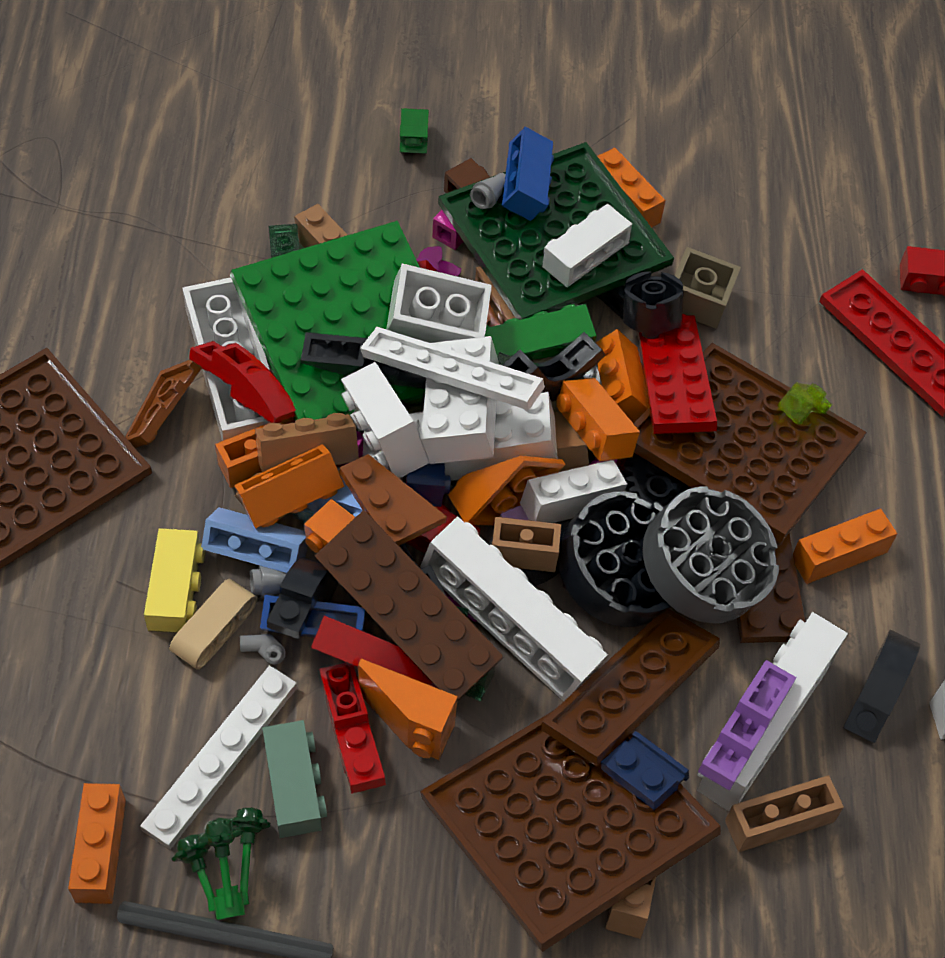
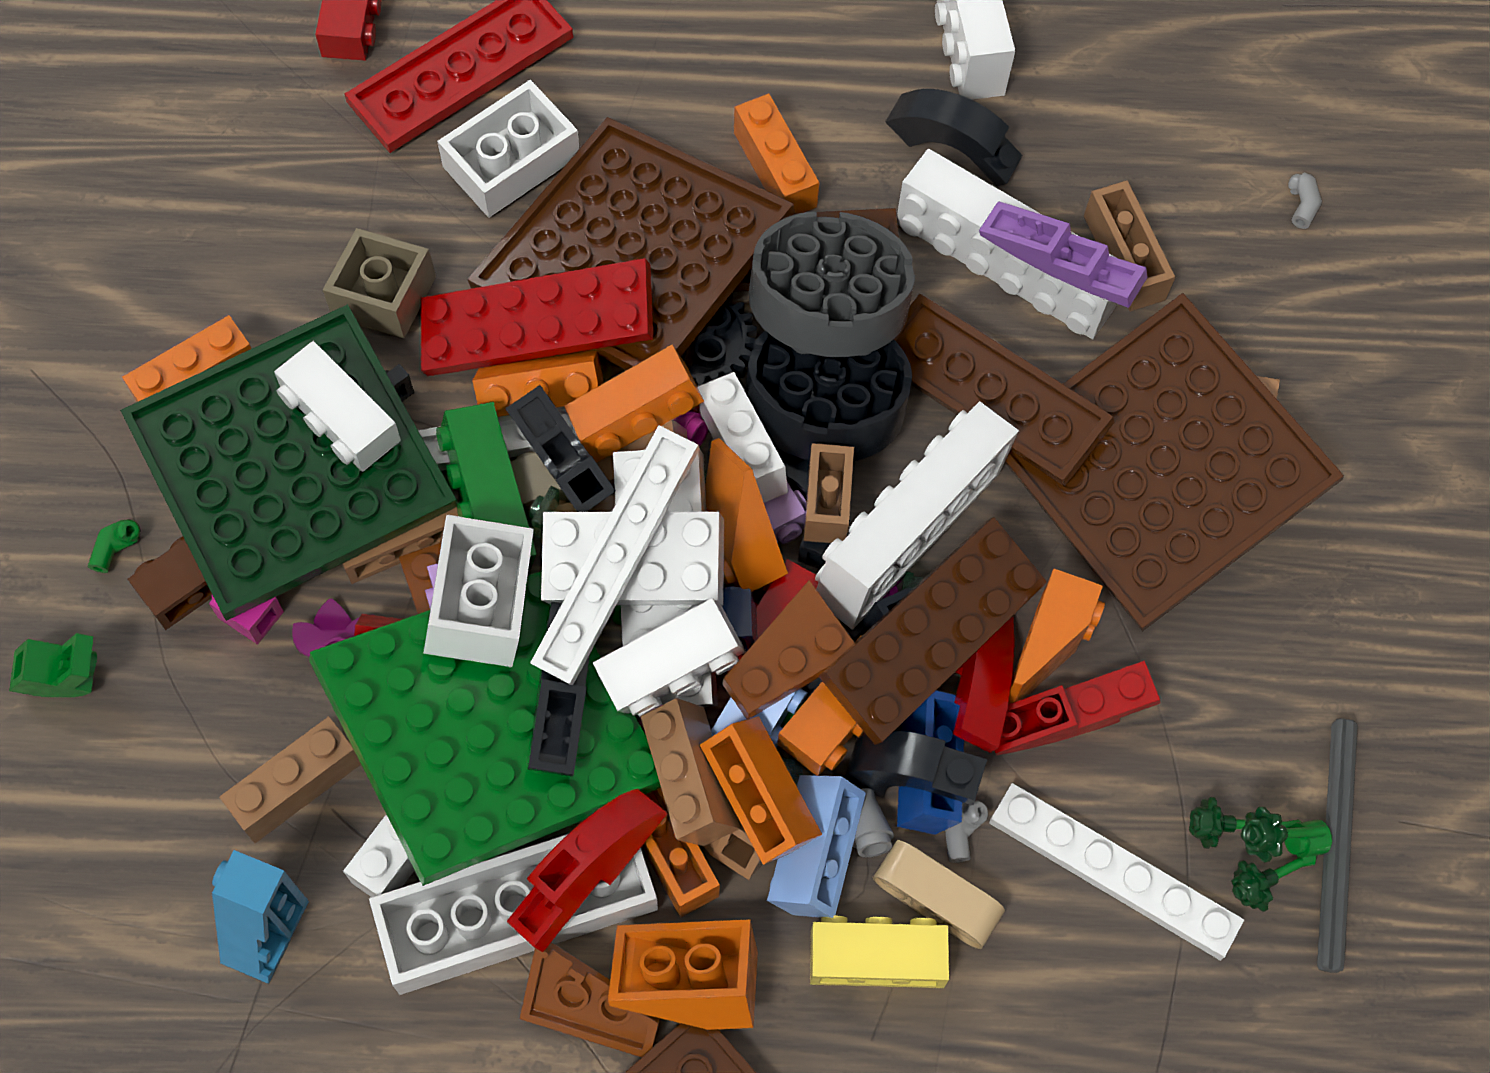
camera: 90 degrees left, 10 degrees up
(97, 843) = (1259, 1003): orange brick -> none
(171, 455) = (687, 972): none -> orange slope
(241, 222) = (254, 914): none -> dark azure wedge
(283, 239) = (304, 857): clear green brick -> none
(294, 778) = (1143, 776): sand green brick -> none
(488, 191) = (227, 537): light grey cone -> none
(497, 156) = (112, 540): none -> green arm
(528, 174) = (202, 480): blue brick -> none
(645, 770) = (1114, 370): dark blue plate -> none
(653, 303) = (427, 334): black brick -> none
(803, 400) = (577, 173): clear neon green bracket -> none
(828, 358) = (509, 148): none -> white brick

